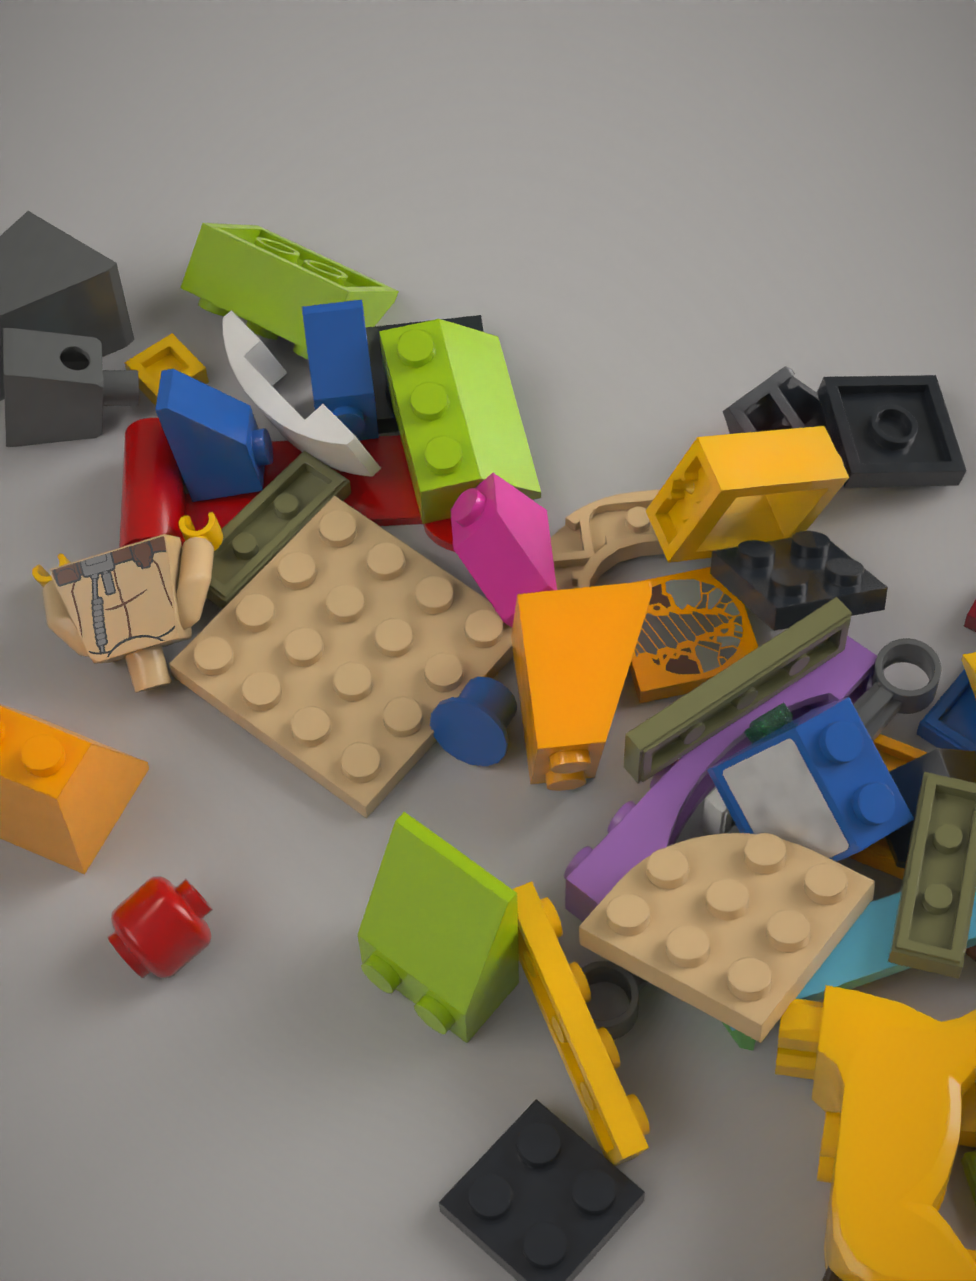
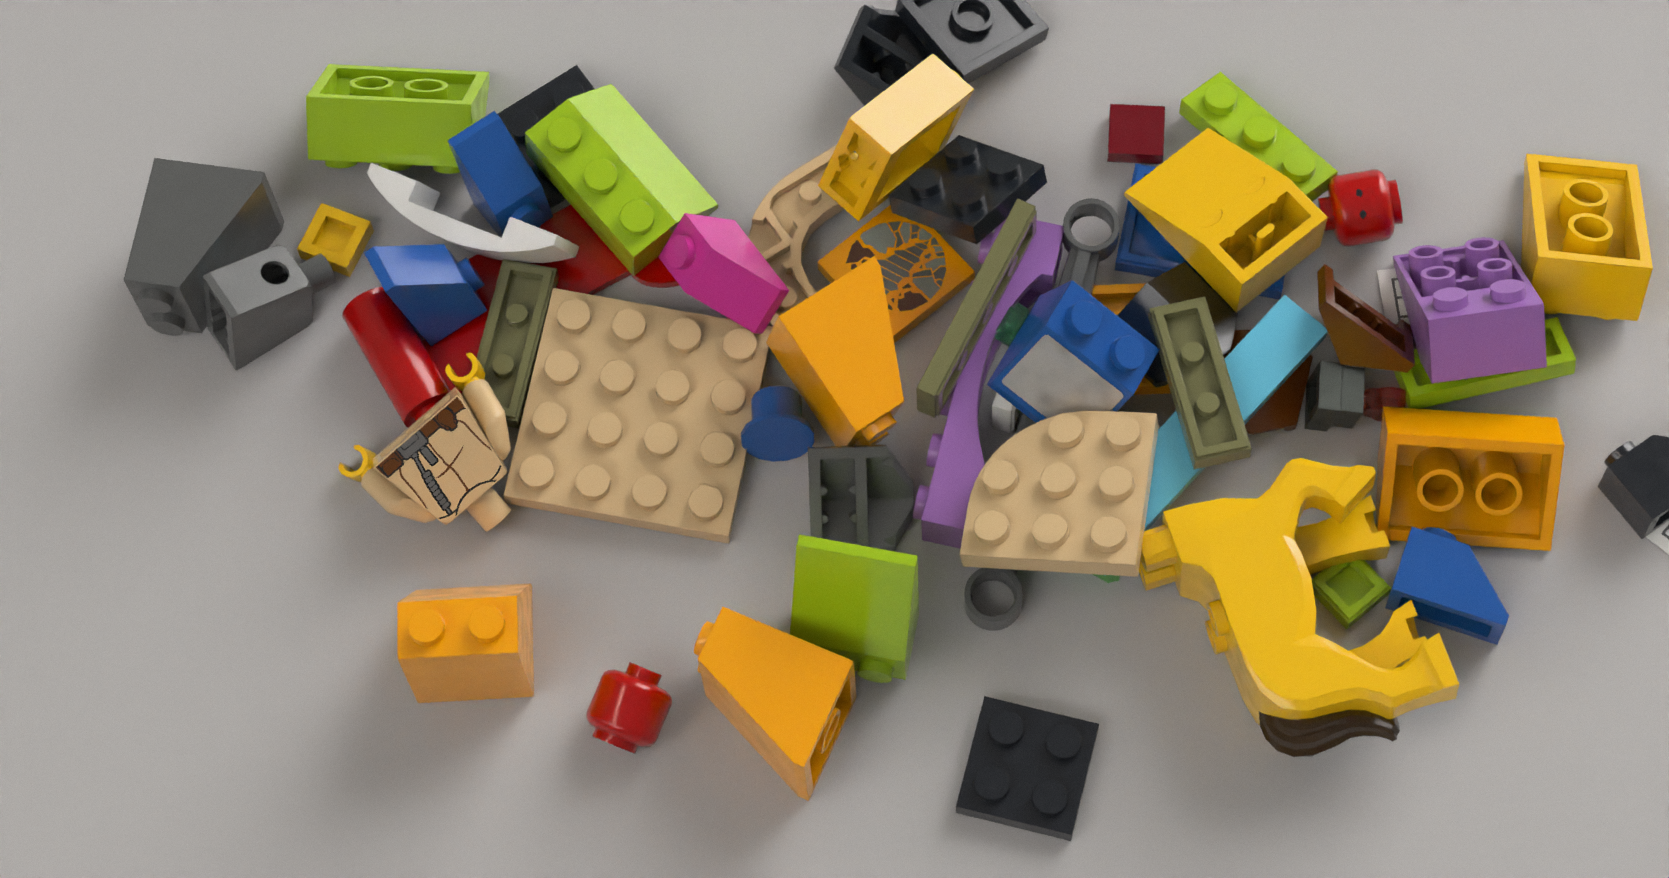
camera: 25 degrees left, 10 degrees up
(318, 985) = (777, 693): none -> light orange slope
(519, 825) = (859, 495): none -> dark grey slope
(585, 1050) = (1002, 641): yellow plate -> none

